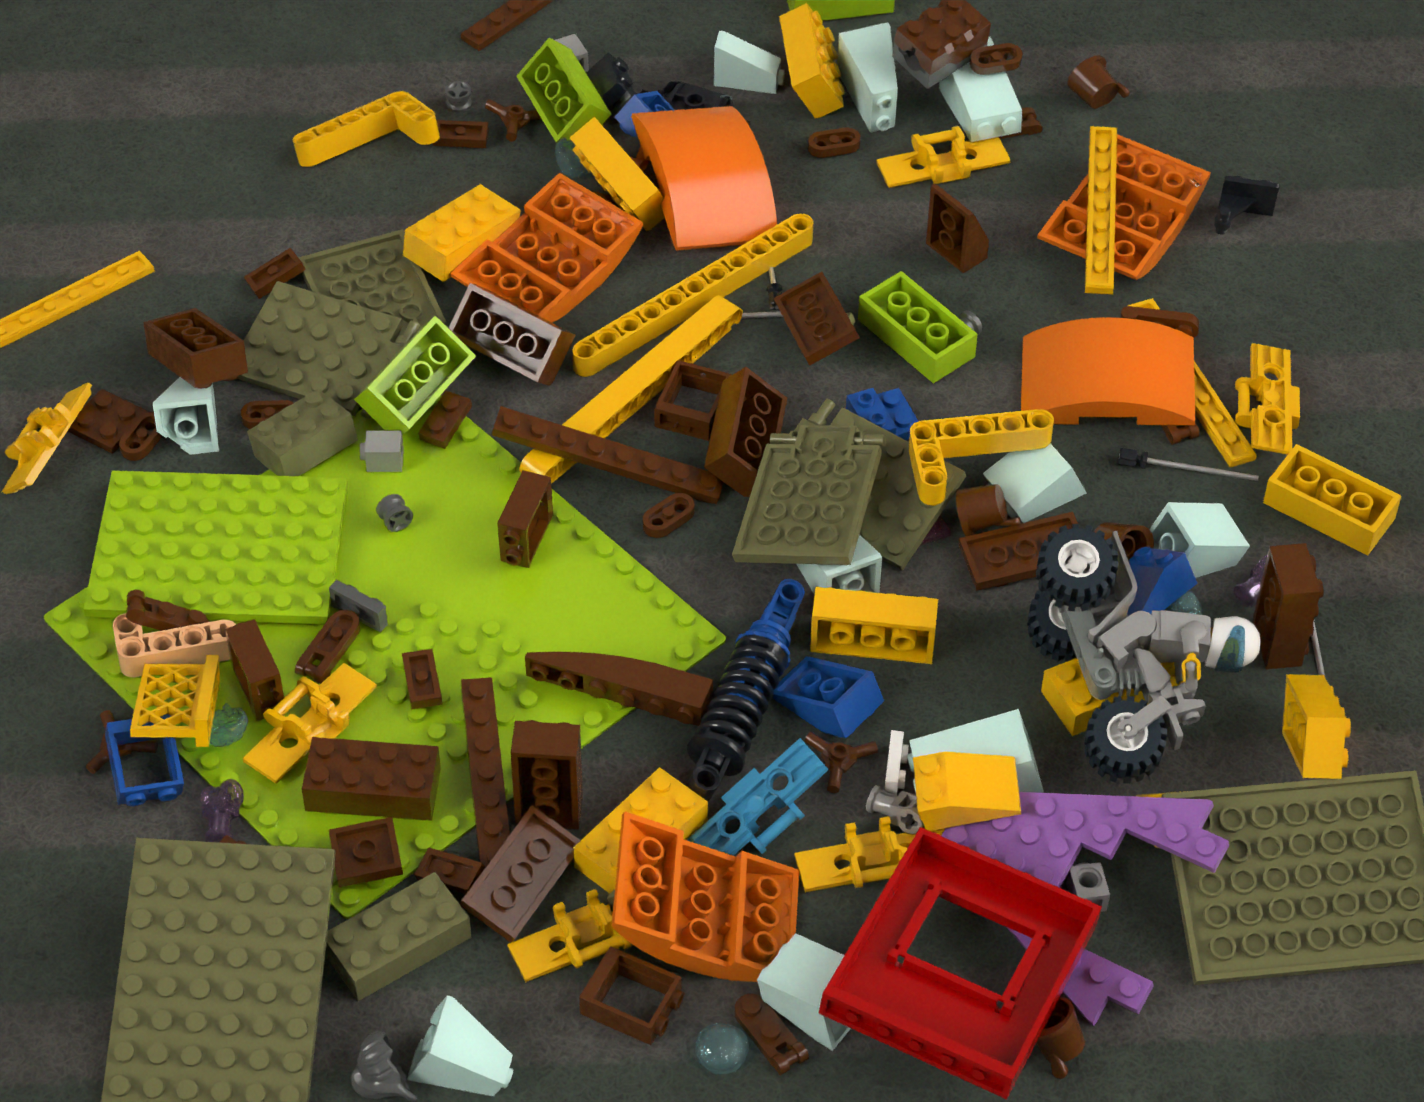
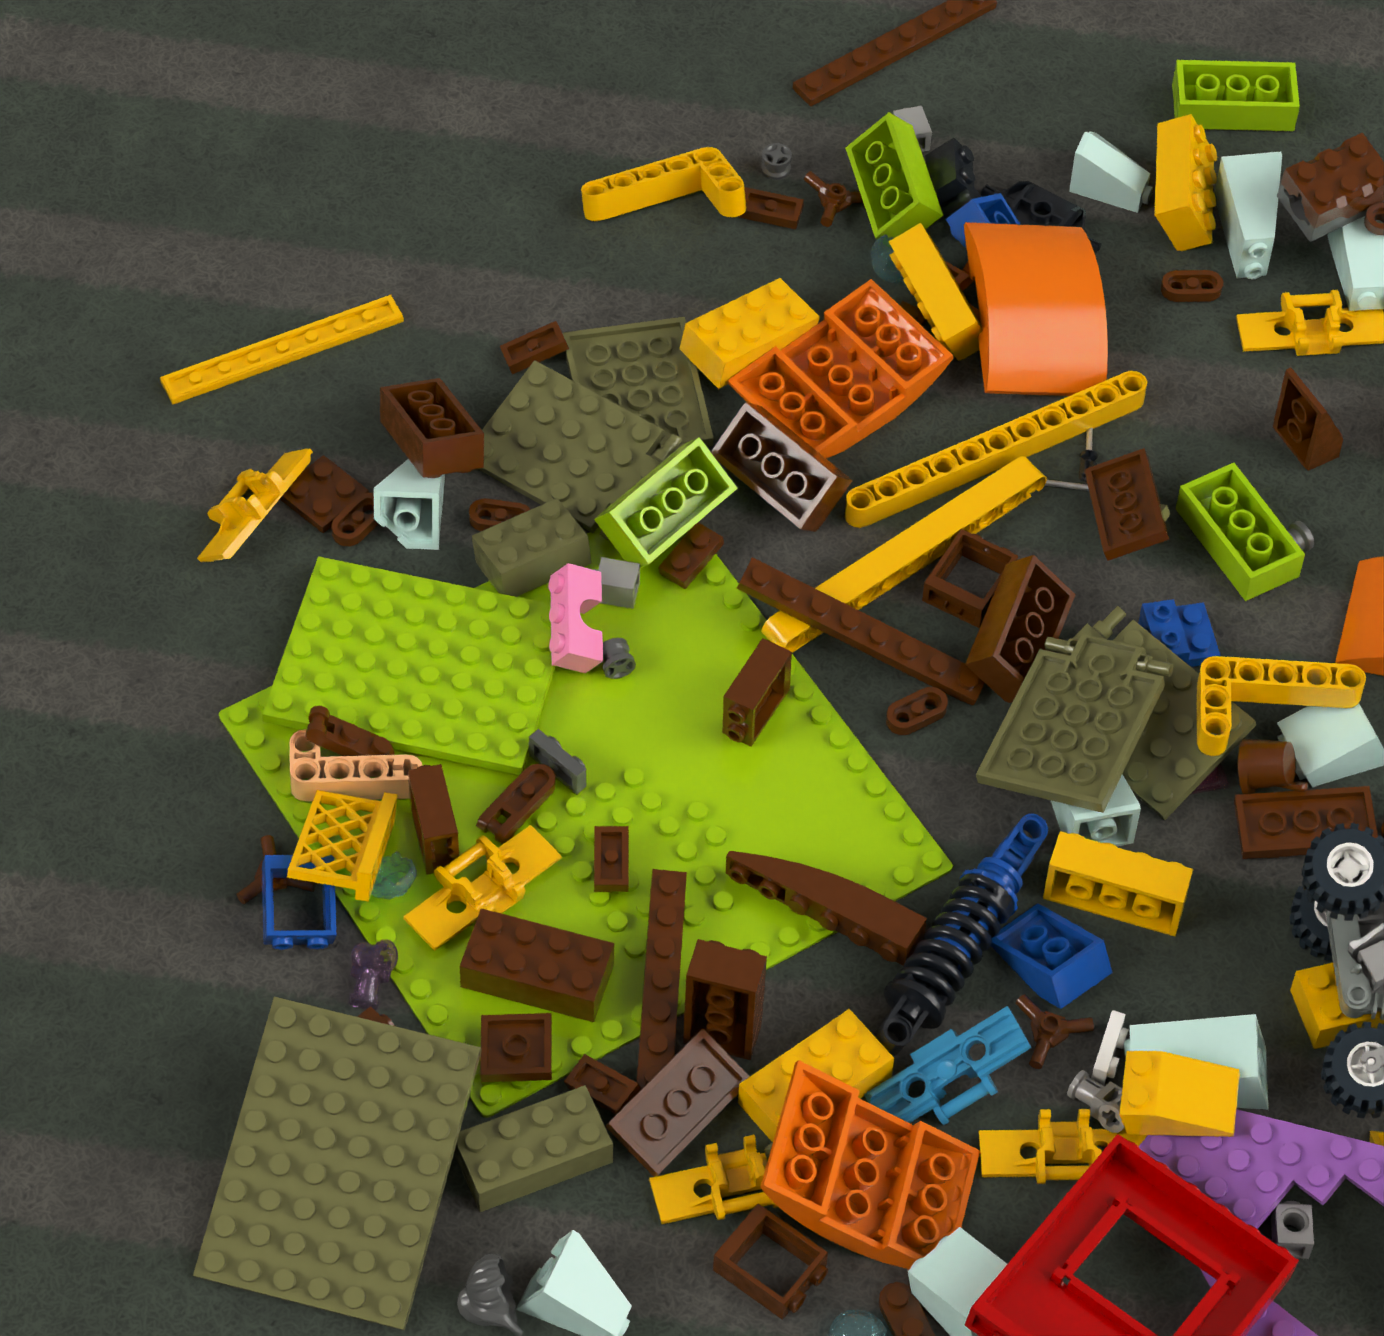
camera: 10 degrees right, 5 degrees up
(346, 465) = (572, 641): none -> bright pink arch

